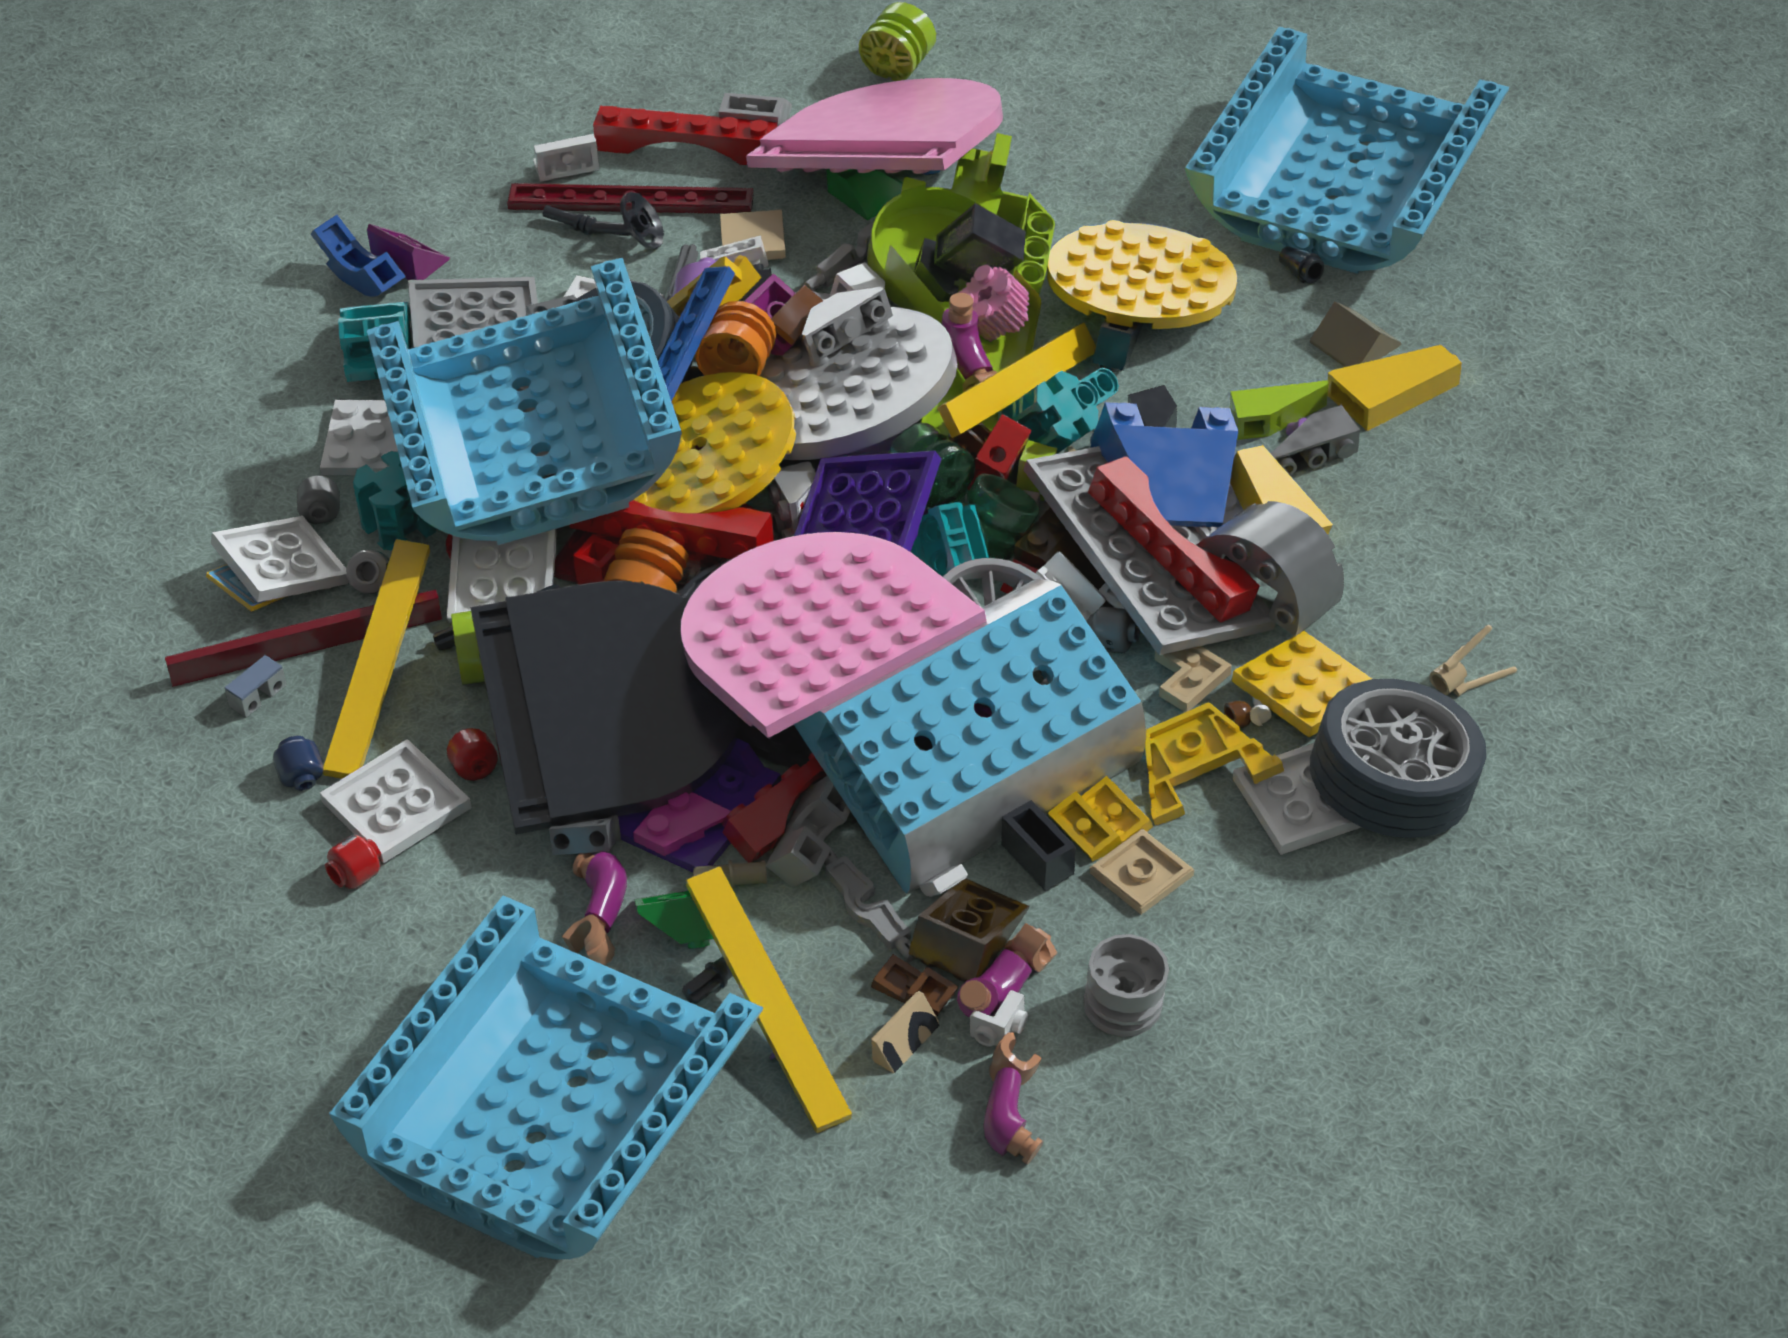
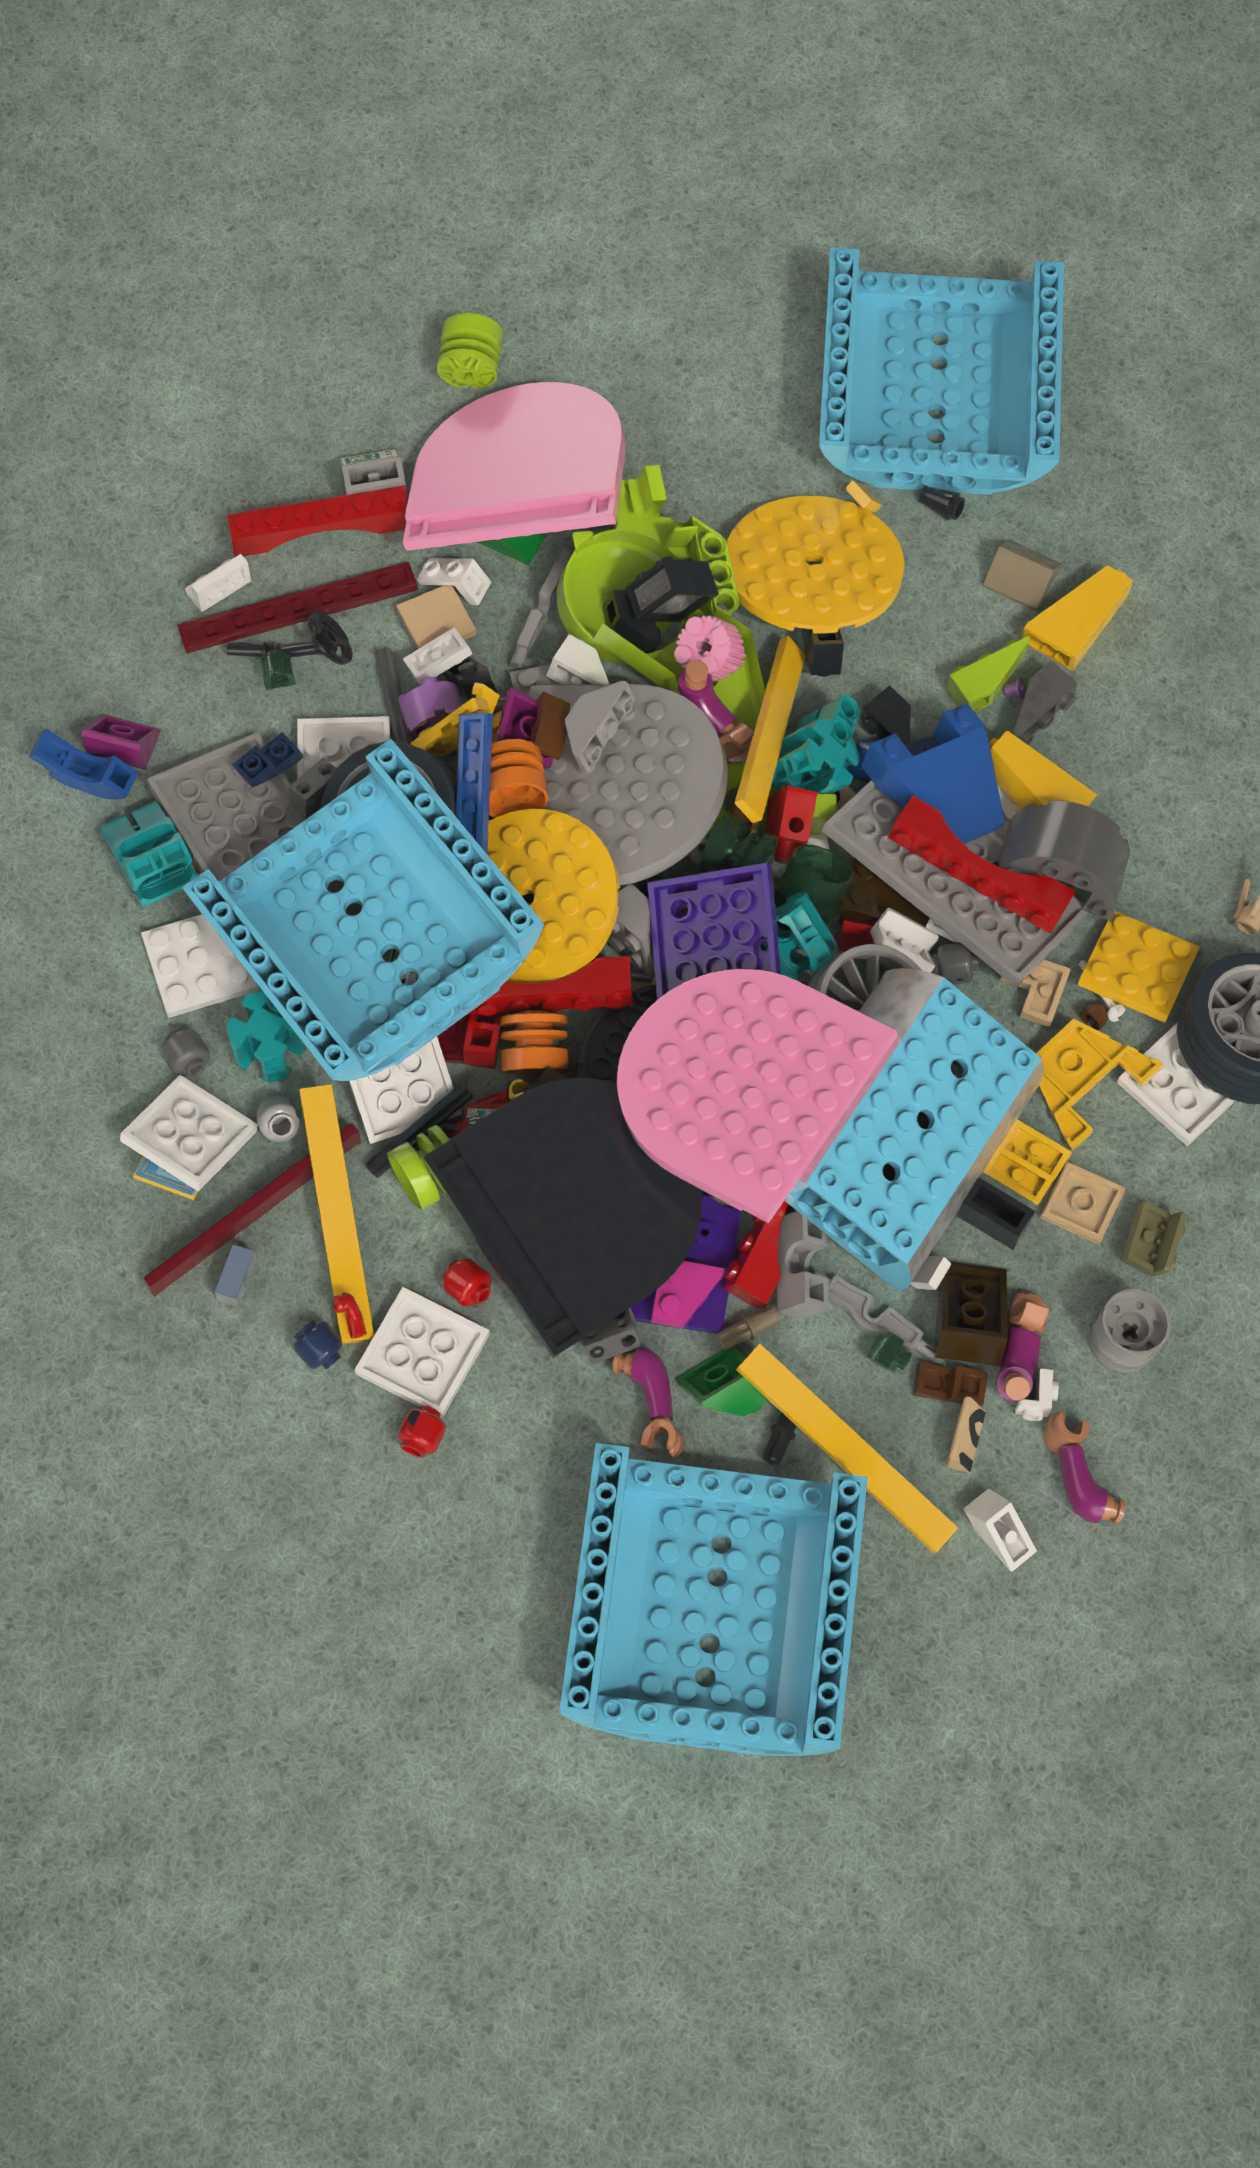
camera: 25 degrees left, 20 degrees up
(344, 744) = (347, 1304): none -> red arm
(515, 296) = (266, 763): none -> dark blue slope
(580, 229) = (277, 663): none -> clear green plate
(796, 206) = (457, 572): none -> white bracket
(862, 936) = (889, 1352): none -> clear green plate
(896, 1127) = (1000, 1528): none -> white slope
(1195, 918) = (1153, 1239): none -> olive bracket
(1222, 240) = (863, 496): none -> yellow tile

